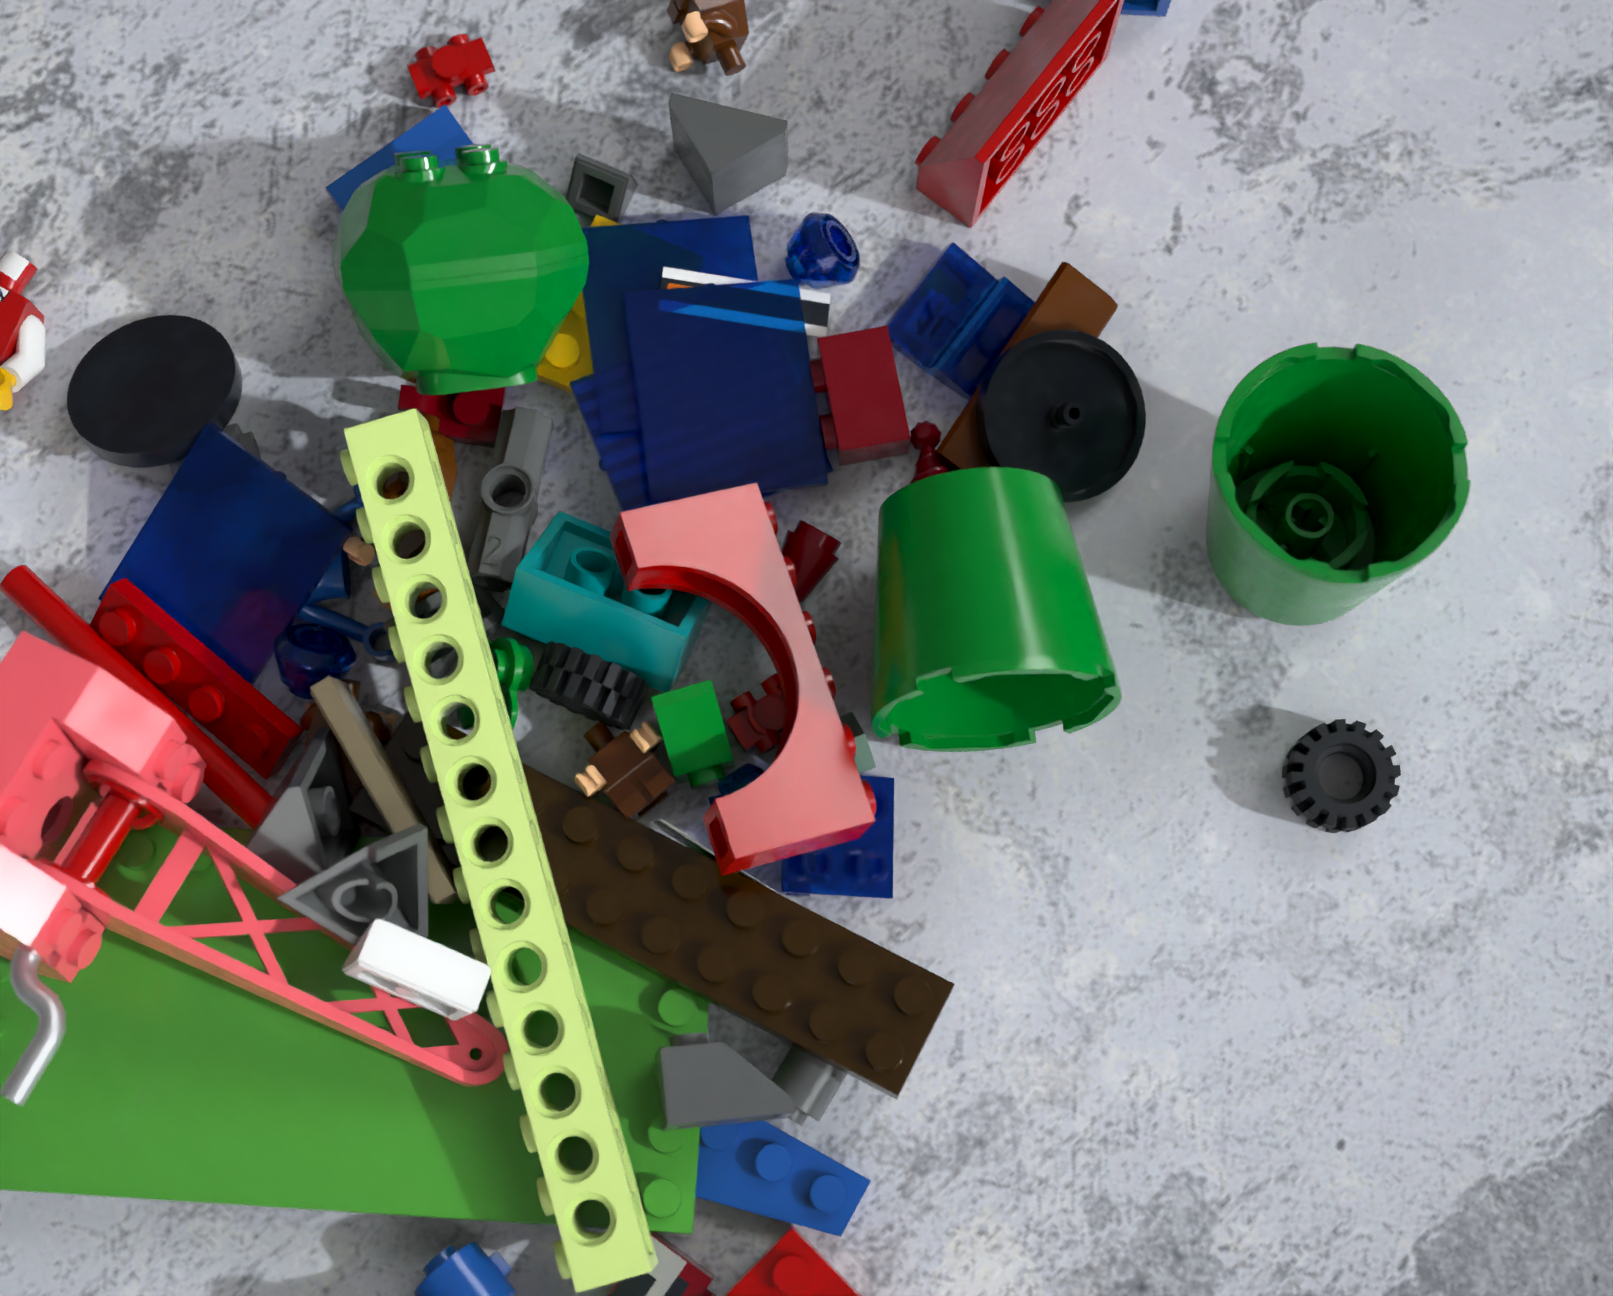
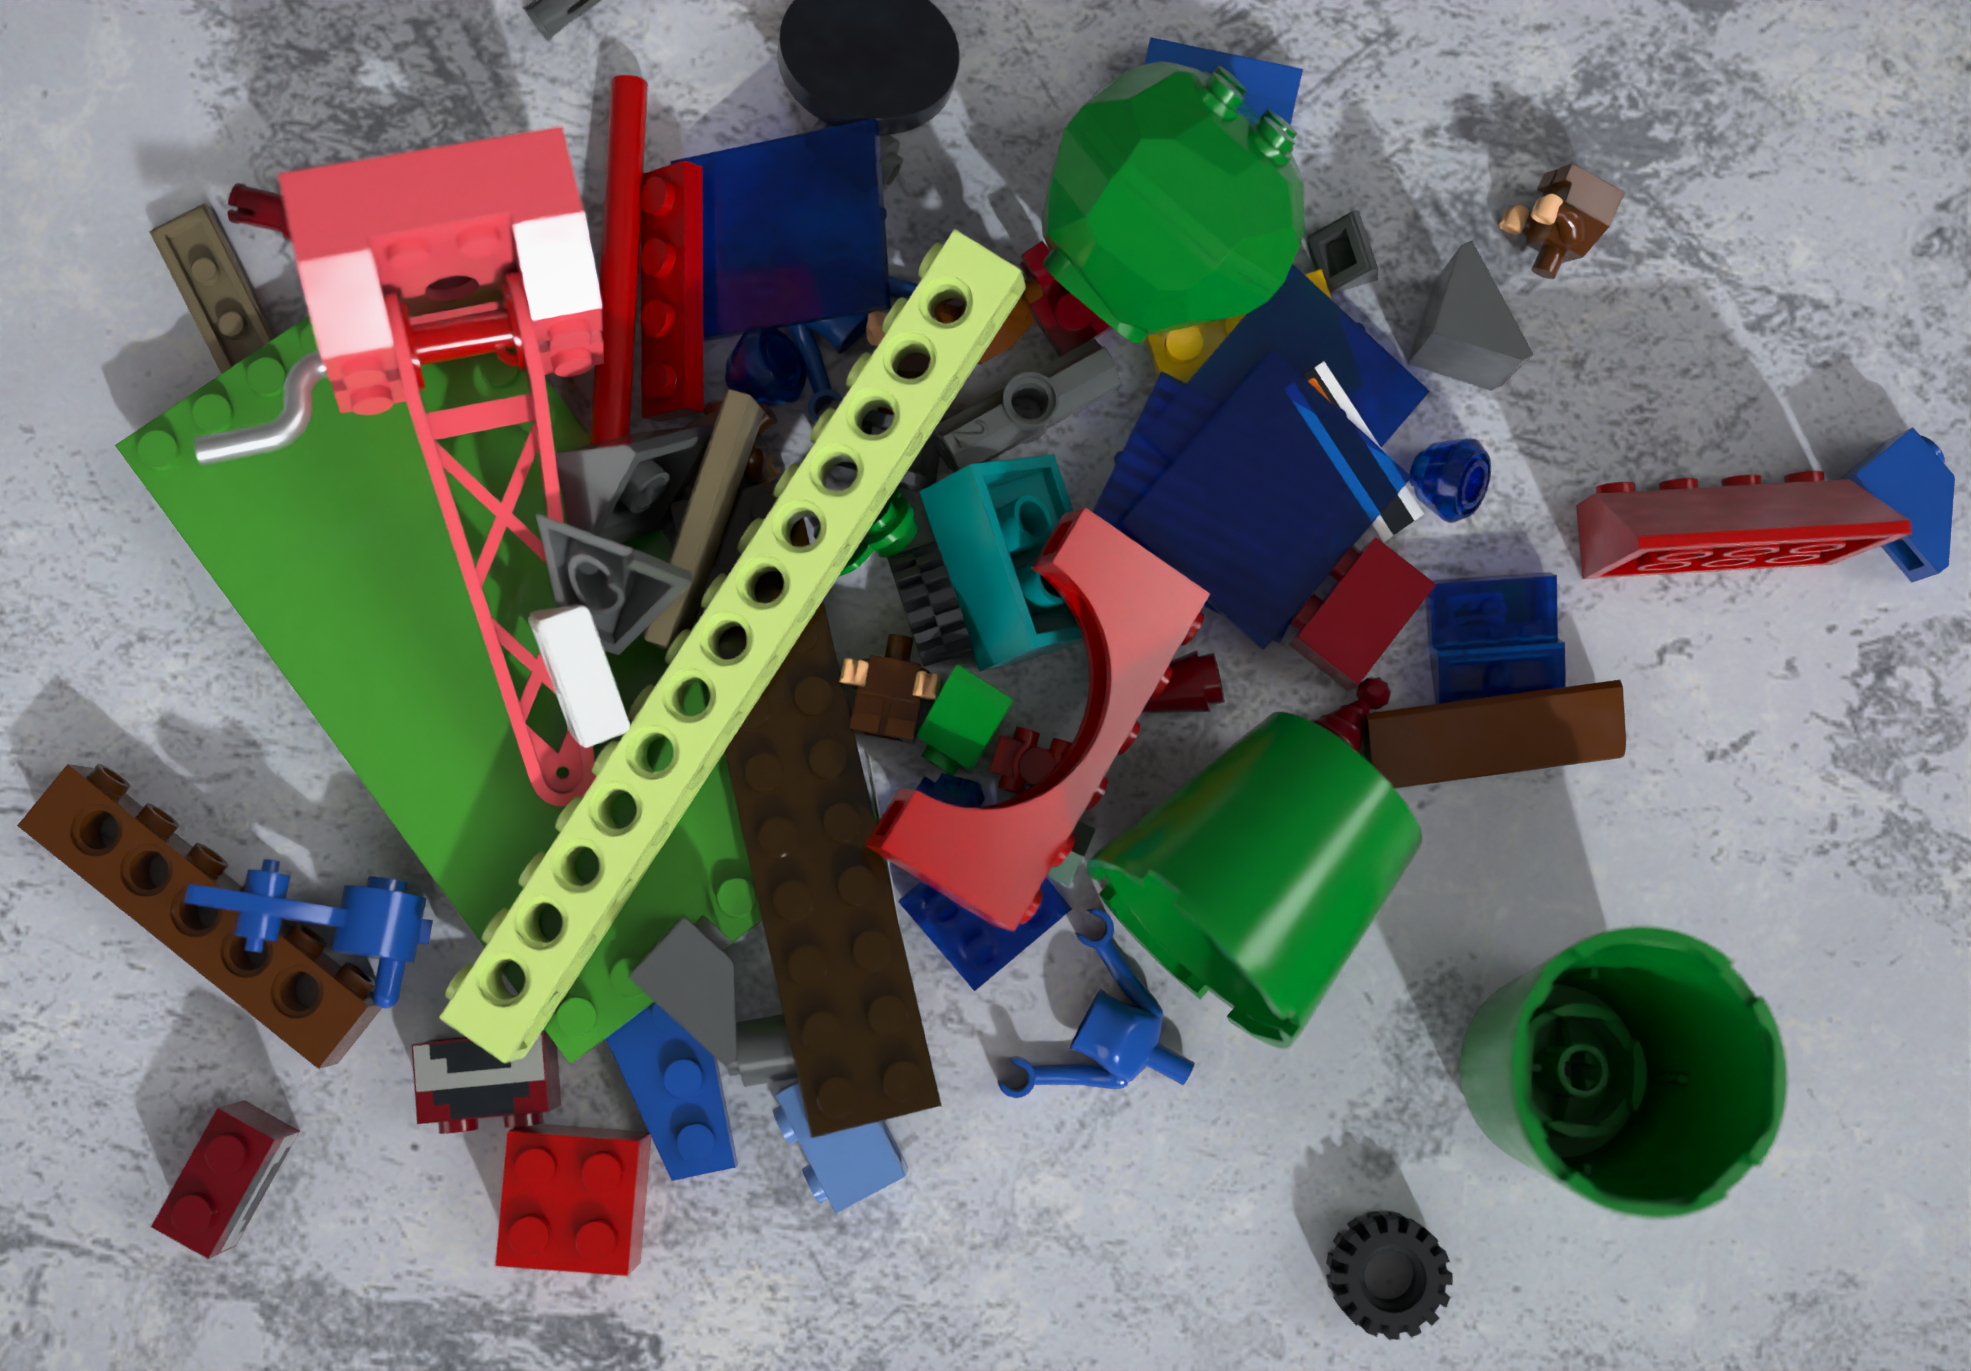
camera: 50 degrees right, 5 degrees up
(449, 66) = (1339, 44): red piece -> none
(935, 1093) = (843, 1163): none -> medium blue brick
(1006, 824) = (1112, 1033): none -> blue piece
(1063, 411) = (1490, 789): black piece -> none

